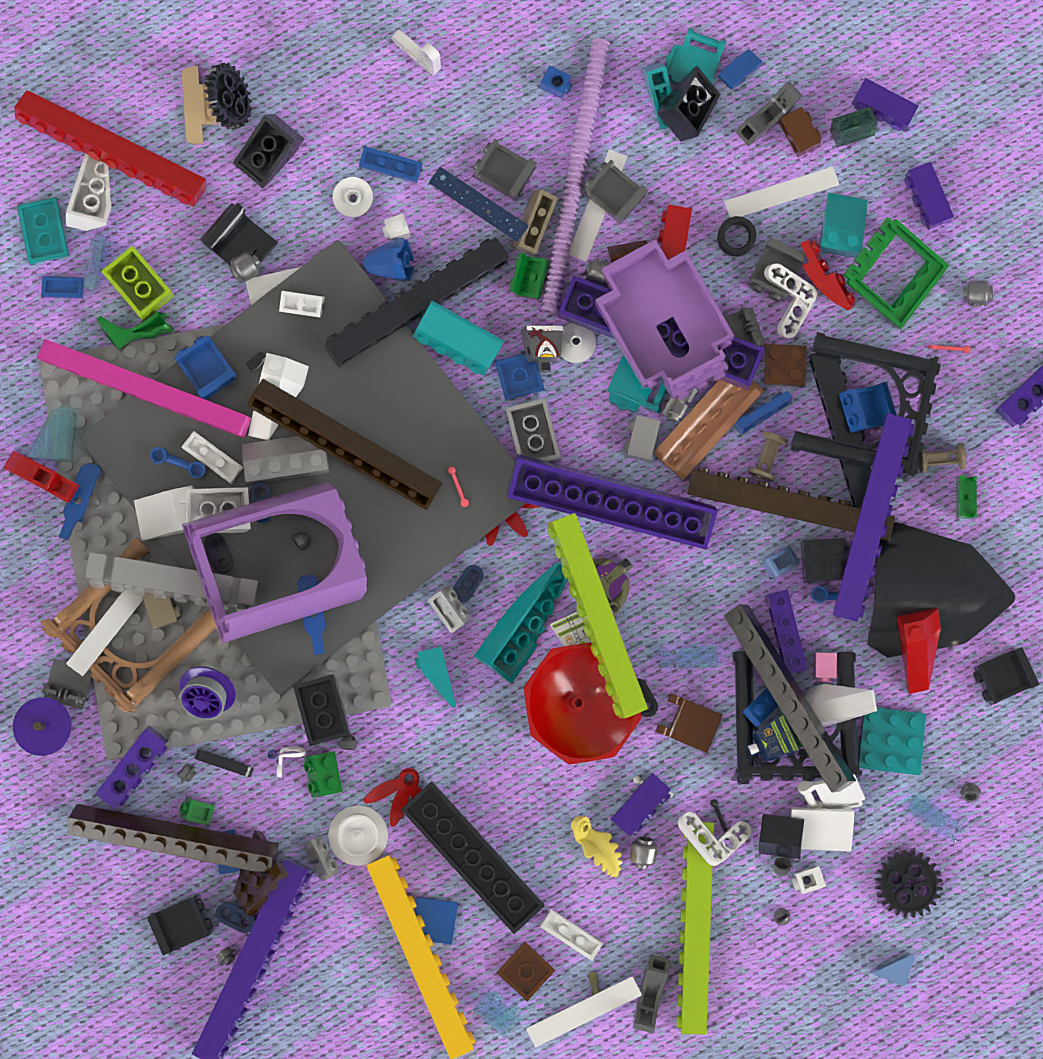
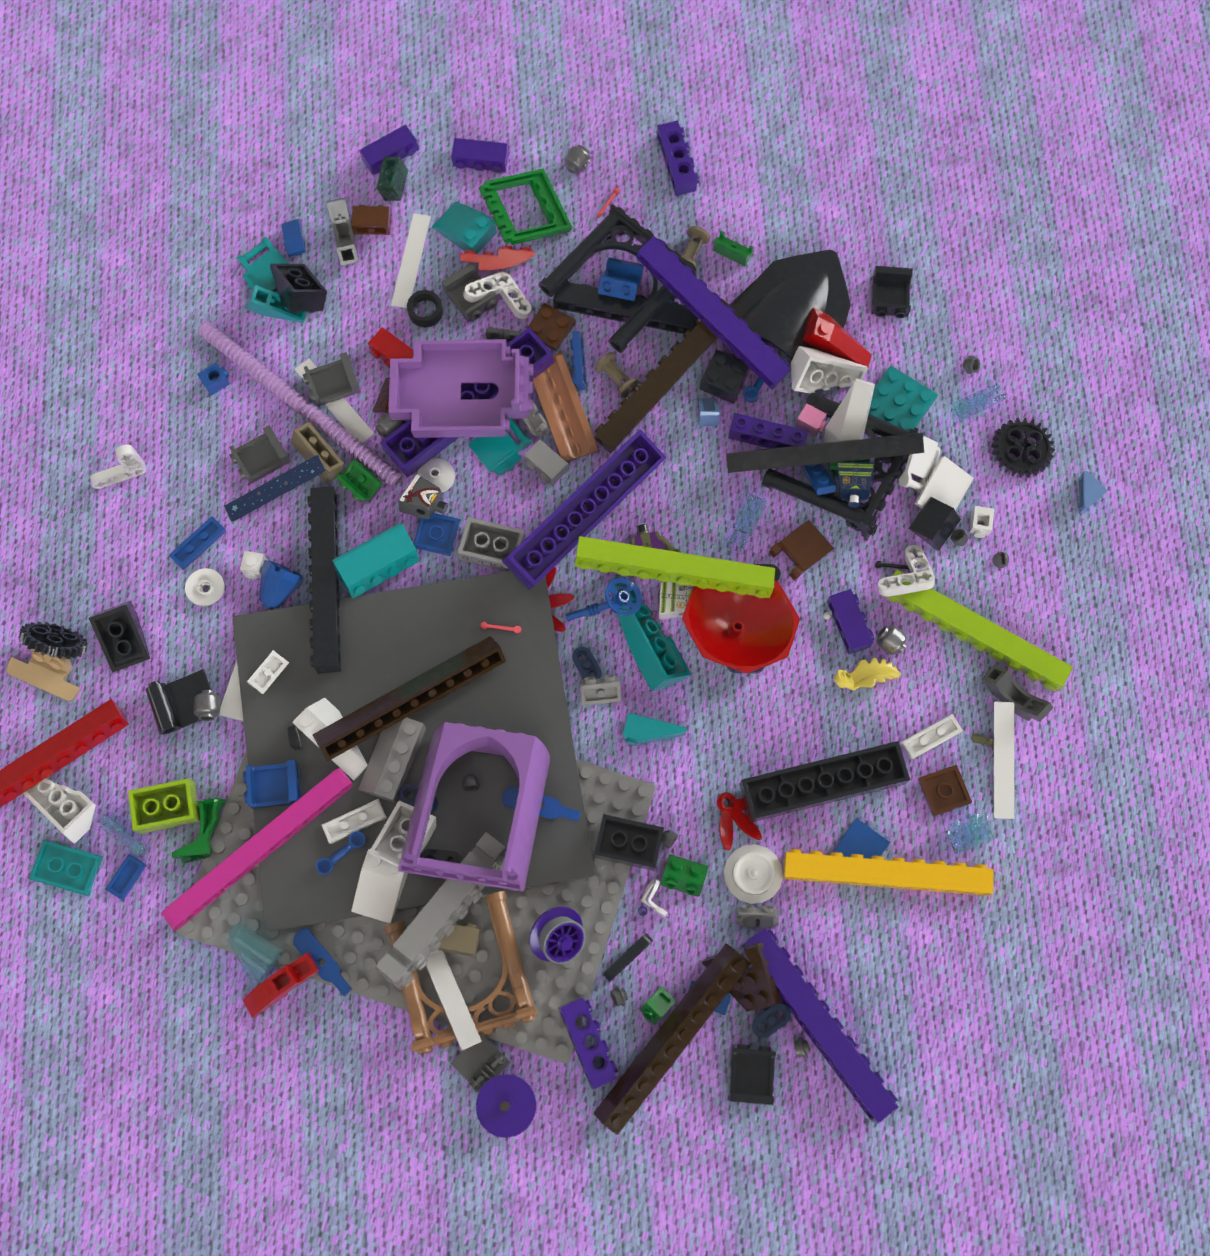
camera: 55 degrees left, 10 degrees down
(537, 578) = (615, 603): none -> blue dish
(876, 646) = (819, 370): none -> white wedge

